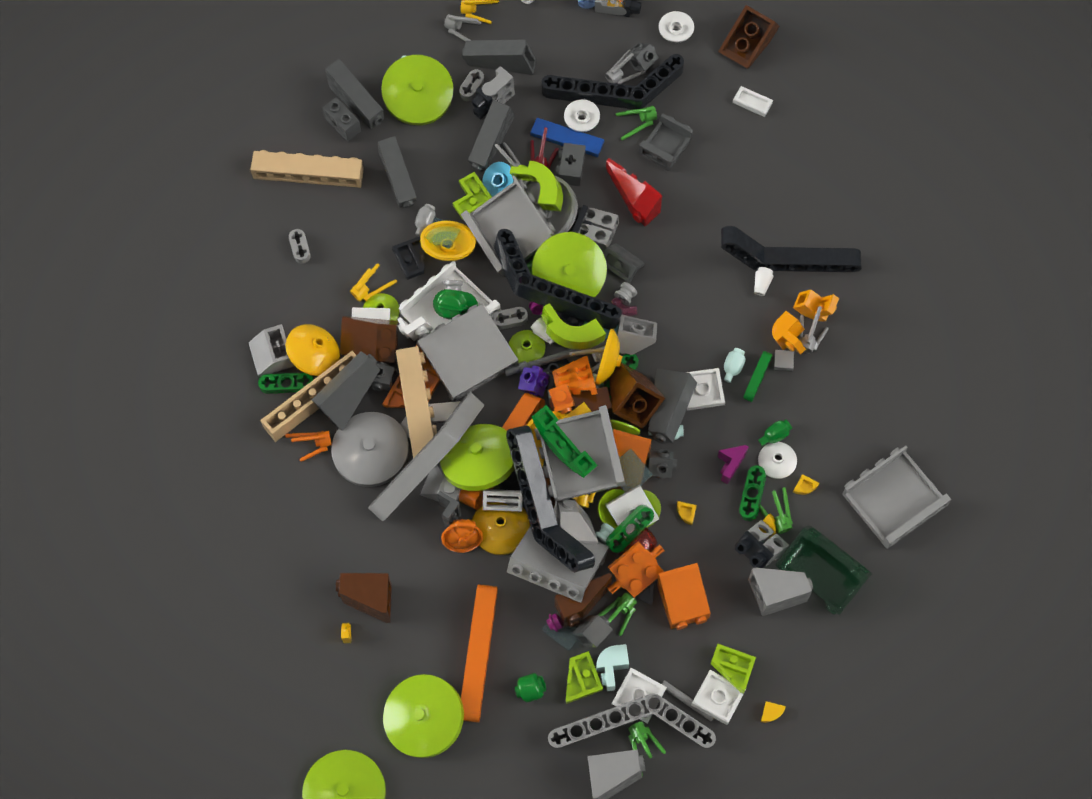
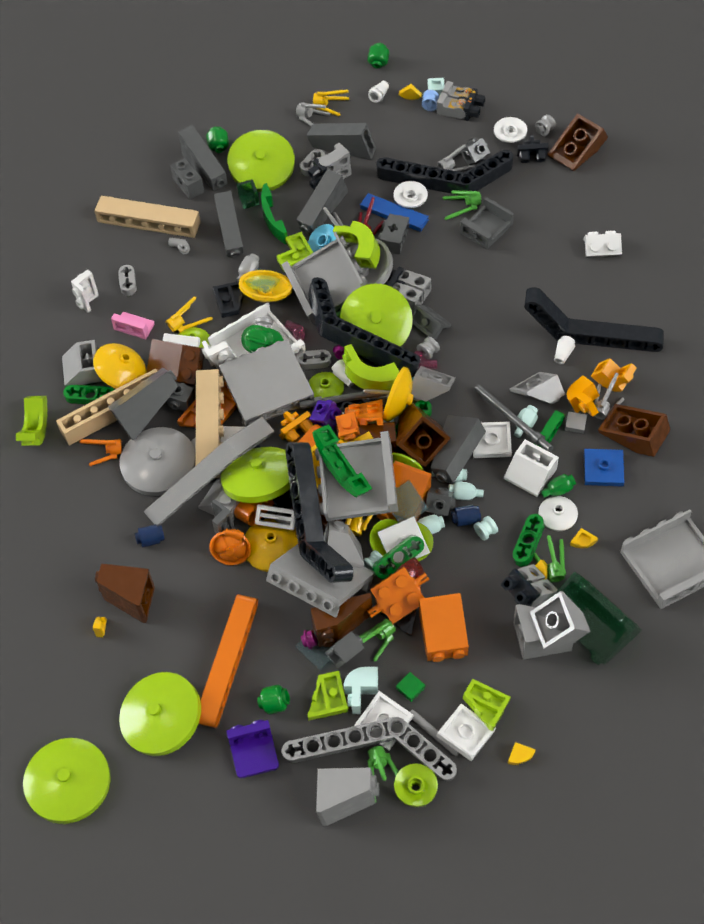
camera: 10 degrees right, 10 degrees down
(235, 420) = (34, 421): none -> lime arch
(258, 265) = (84, 290): none -> white bracket
(315, 297) = (132, 324): none -> bright pink panel
(349, 197) = (181, 244): none -> light grey arm
(365, 67) = (217, 139): none -> green head
(377, 531) = (149, 535): none -> dark blue brick
(410, 132) = (248, 194): none -> clear green panel
(447, 170) = (276, 227): none -> green slope
(488, 286) = (298, 330): none -> clear pink arm
(511, 391) = (289, 431): none -> light orange hips
(518, 740) = (252, 748): none -> dark purple bracket
(640, 198) = (454, 264): red wedge -> none
(656, 486) = (433, 523): none -> light aqua plant
(659, 657) = (410, 686): none -> green tile
(683, 448) = (464, 491): none -> light aqua plant
(686, 512) = (459, 551): yellow tile -> none
(686, 748) = (415, 775): none -> lime dish
(688, 474) = (466, 515): none -> dark blue brick
(695, 51) = (532, 147): none -> black hips
(709, 485) = (485, 528): none -> light aqua wheel
(712, 17) = (545, 125): none -> light grey wheel
(733, 459) = (512, 506): magenta slope -> none
(744, 327) = (541, 387): none -> light grey slope
(746, 417) = (531, 468): none -> white slope
(748, 385) = (536, 437): none -> dark grey bar
(752, 101) = (574, 197): white tile -> none
(788, 155) = (603, 244): none -> white bracket
(796, 583) = (559, 621): none -> light grey slope
(816, 406) = (603, 467): none -> blue plate
(843, 362) = (636, 428): none -> reddish brown slope

